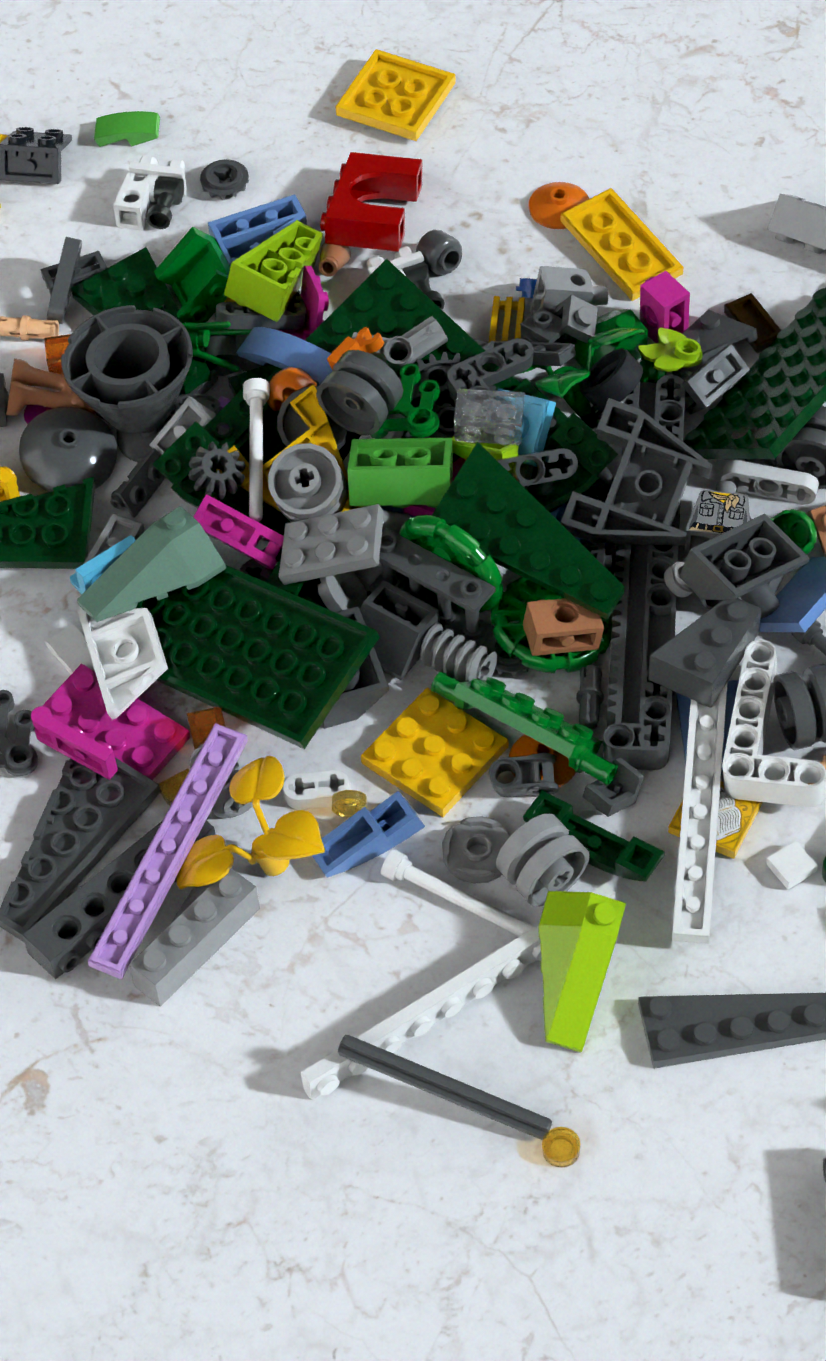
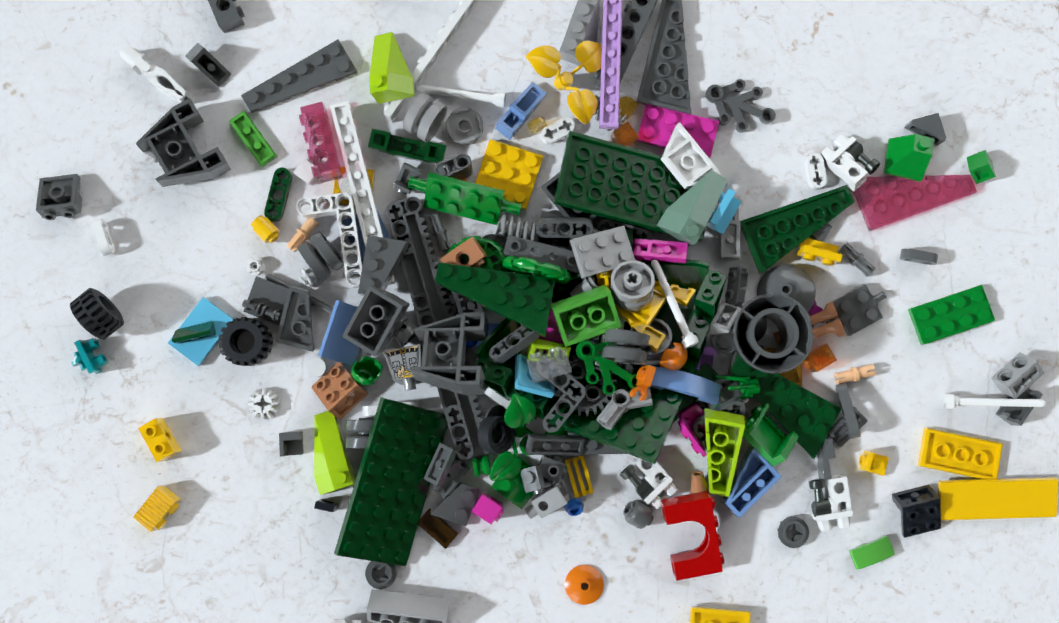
camera: 155 degrees right, 30 degrees up
(62, 221) = (873, 463): none -> yellow bracket
(74, 743) = (689, 100): dark pink plate -> none
(131, 241) = (826, 452): none -> dark grey slope
(216, 459) = (685, 271): dark grey gear -> none
(356, 594) = (559, 234): none -> dark grey beam
(619, 242) = (535, 562): yellow tile -> none
(672, 351) = (475, 475): lime plate -> none
(674, 582) = (413, 314): light grey tile -> none
(739, 941) = (331, 168): none -> clear pink brick

